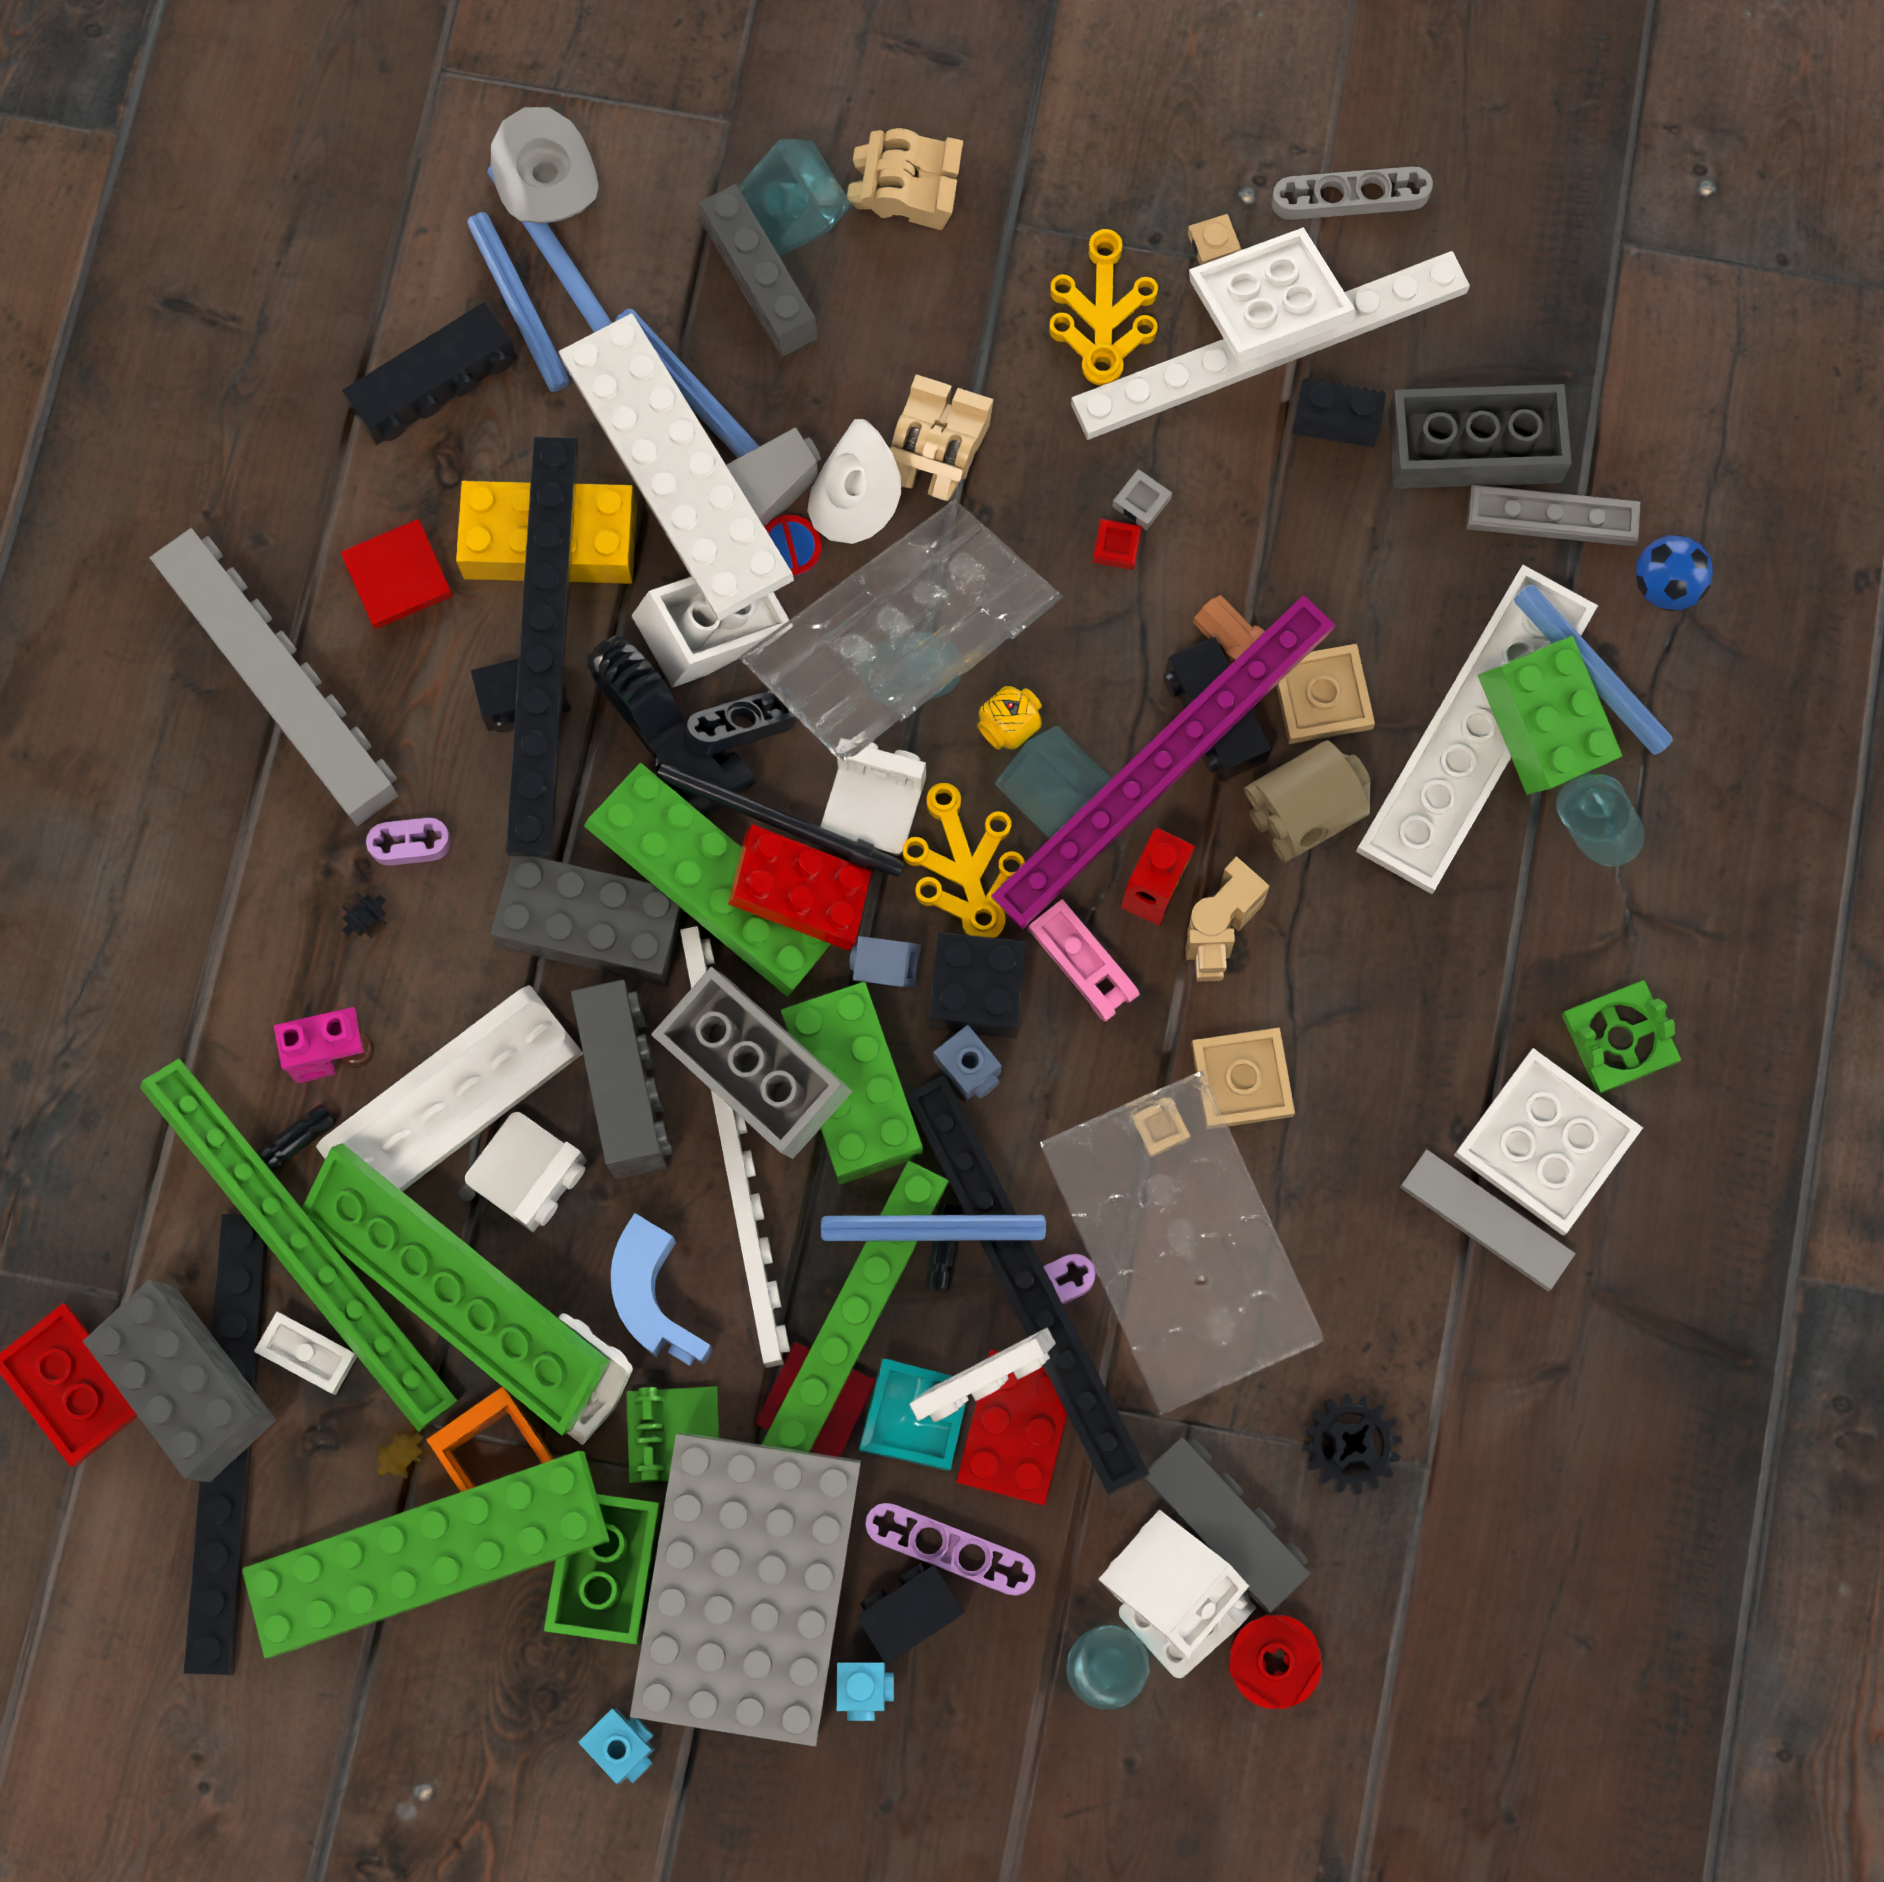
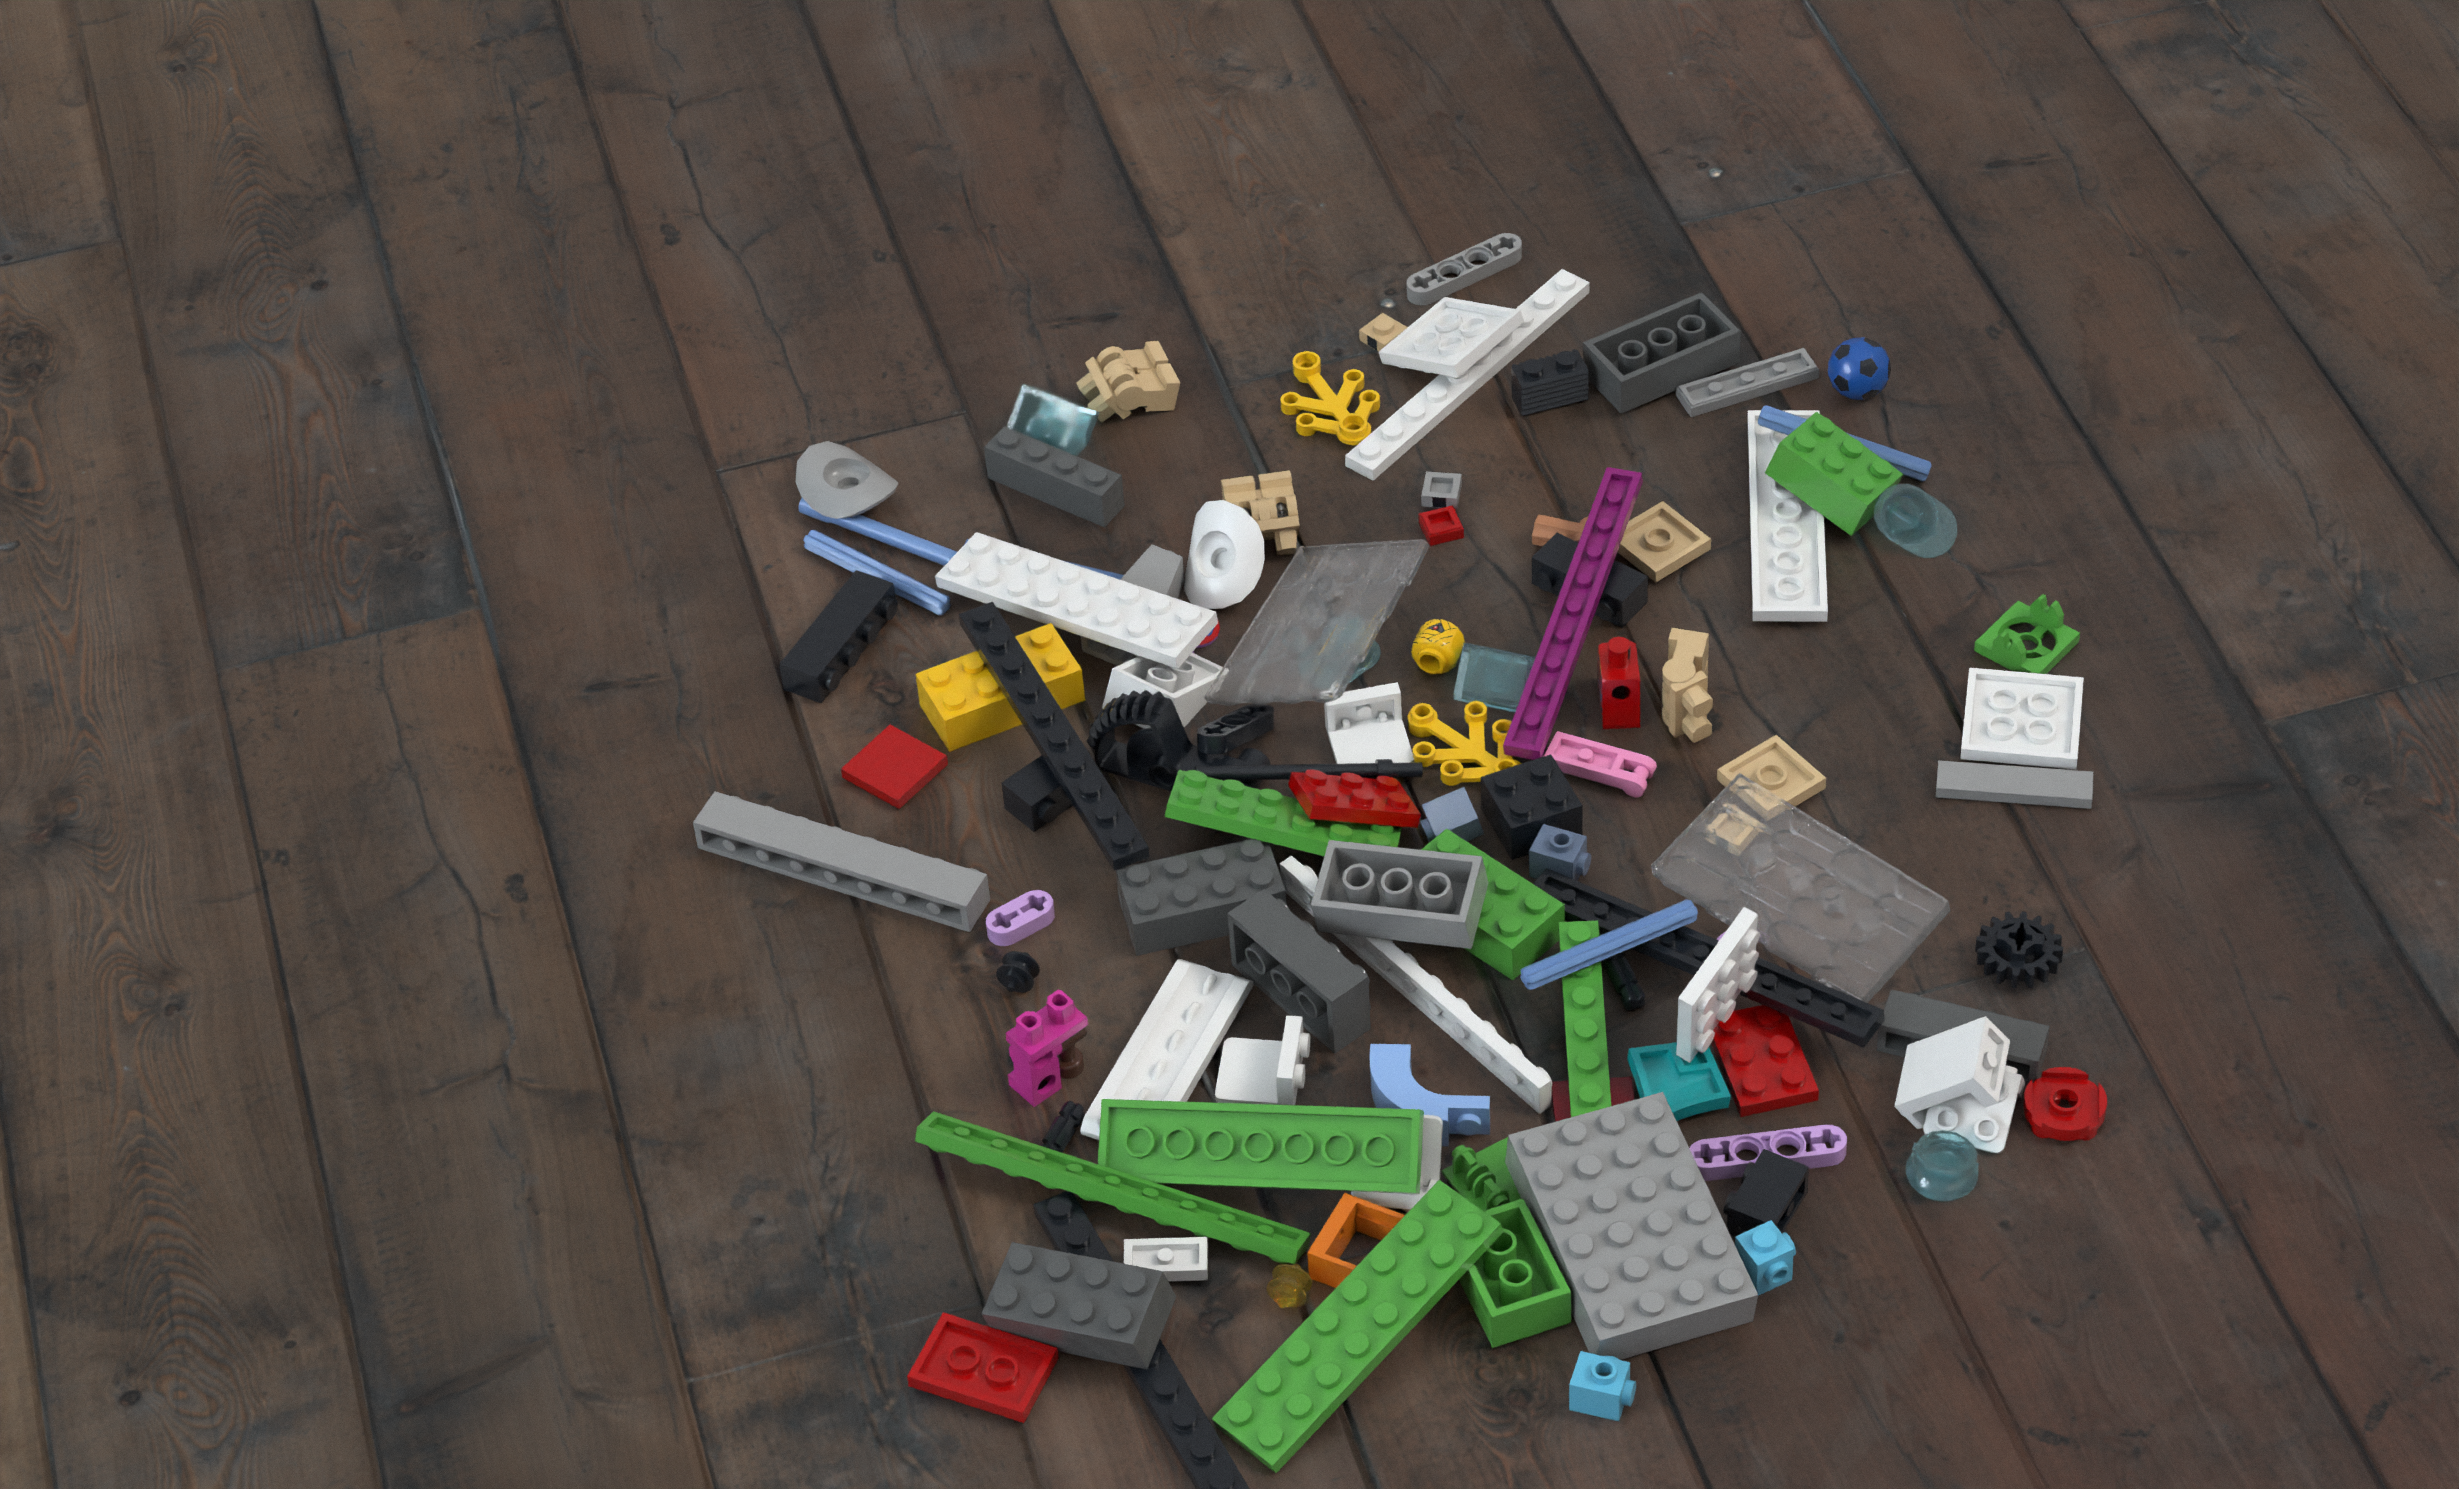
camera: 25 degrees left, 30 degrees down
(1310, 799) = (1697, 590): dark tan cylinder -> none

